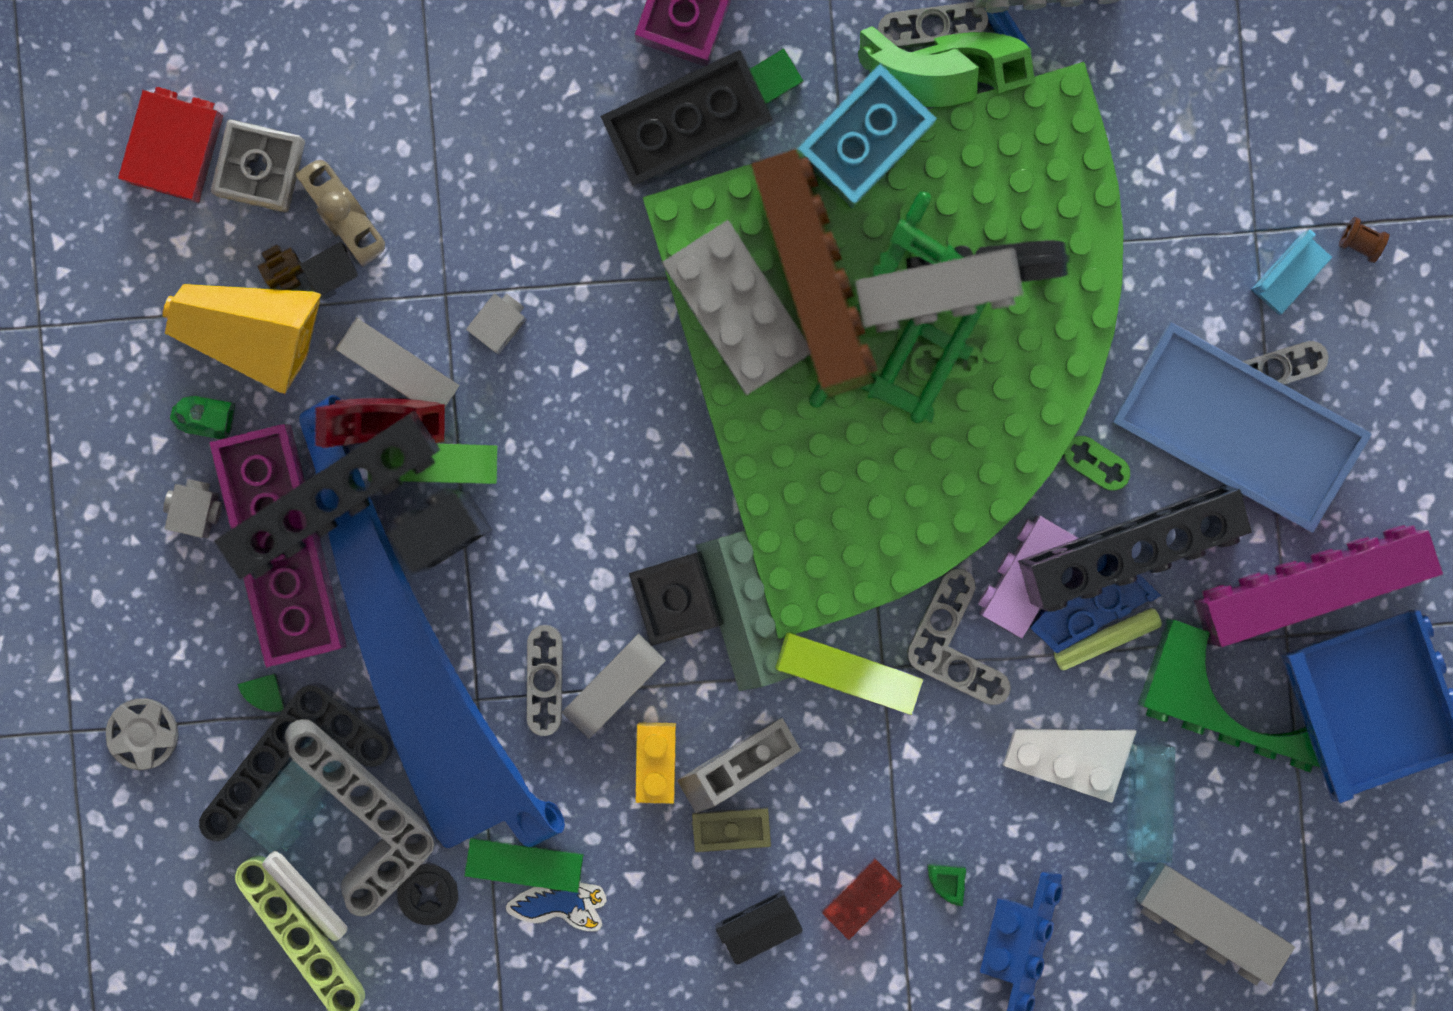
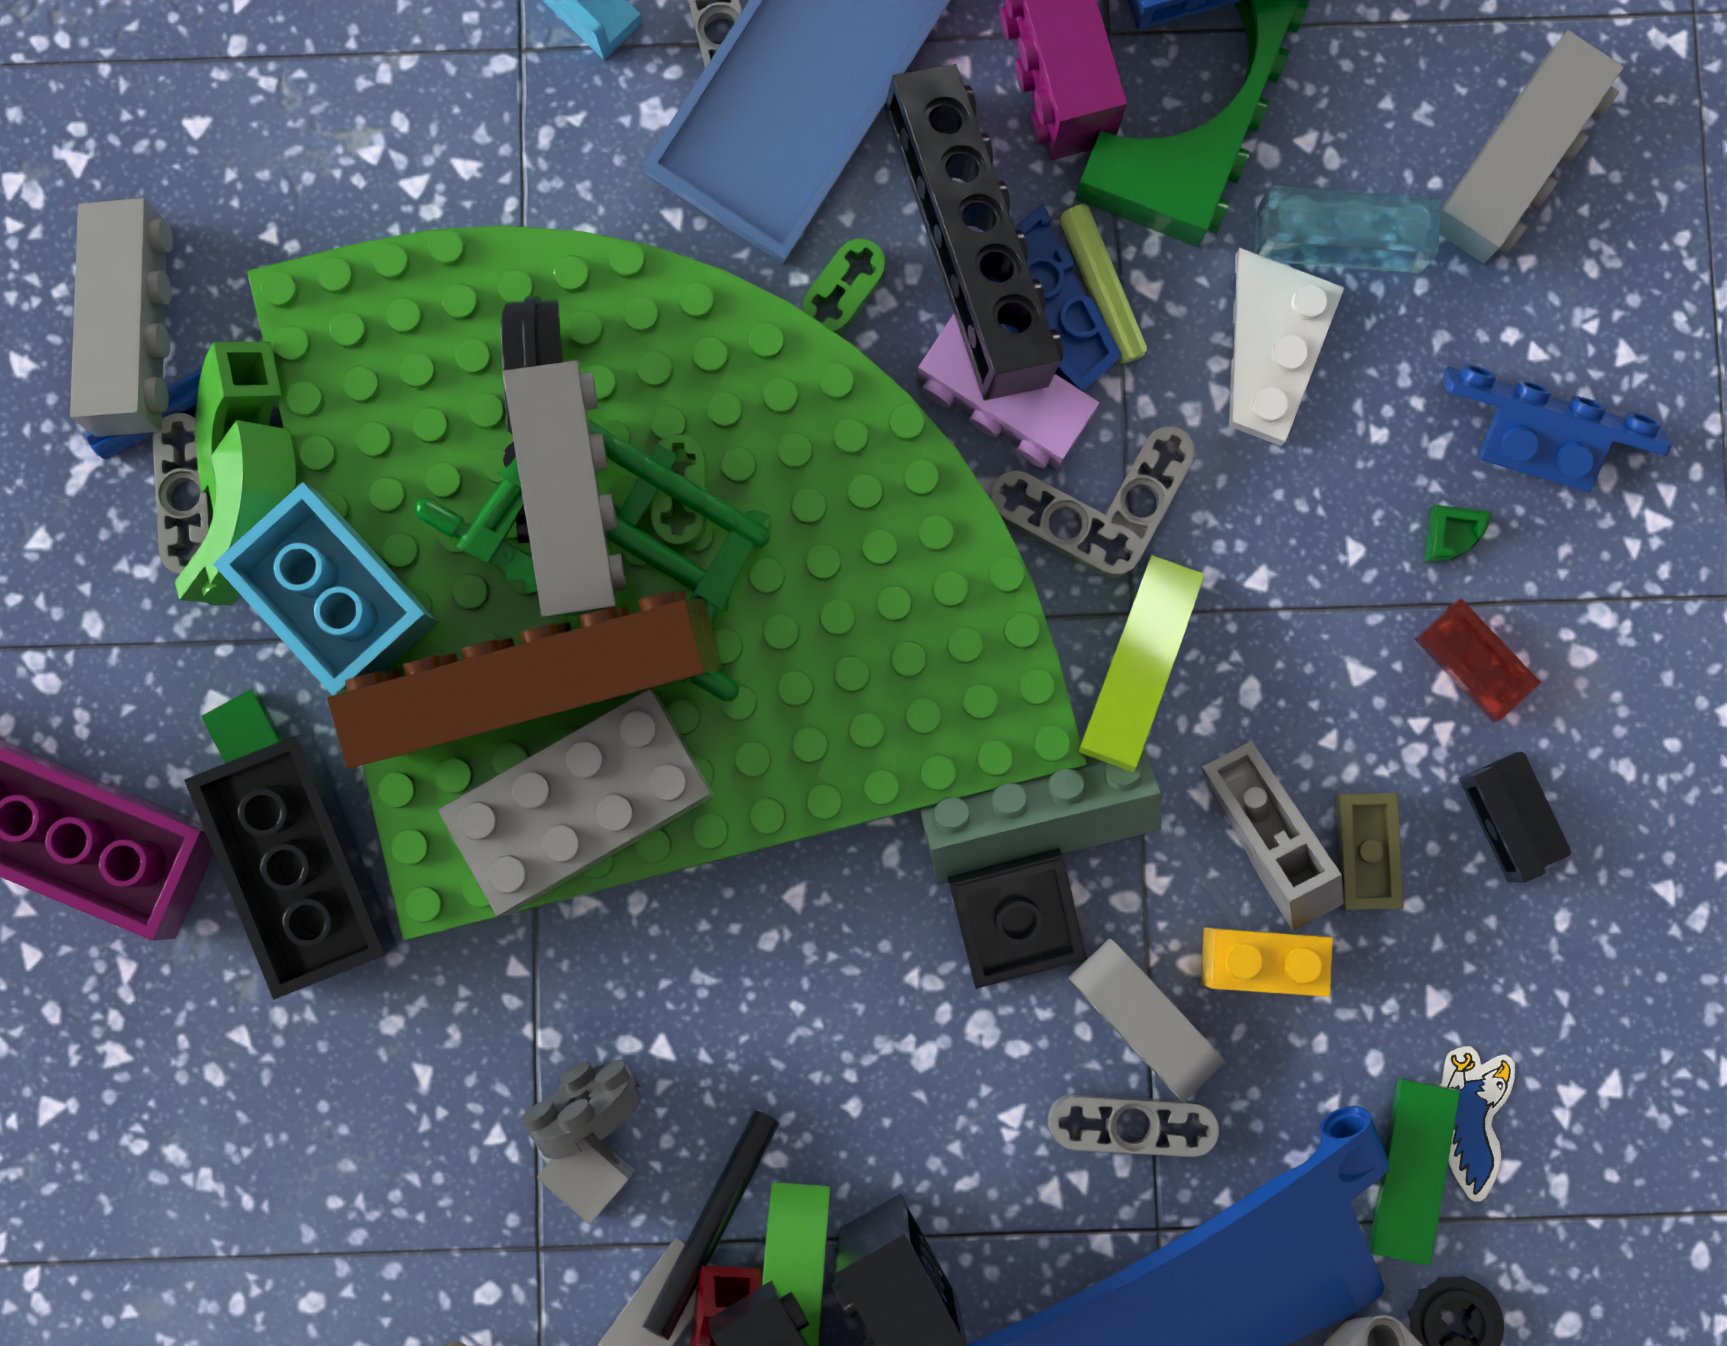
camera: 85 degrees left, 5 degrees down
(469, 408) = (711, 1225): none -> black piece
(542, 319) = (586, 1103): none -> dark grey plate

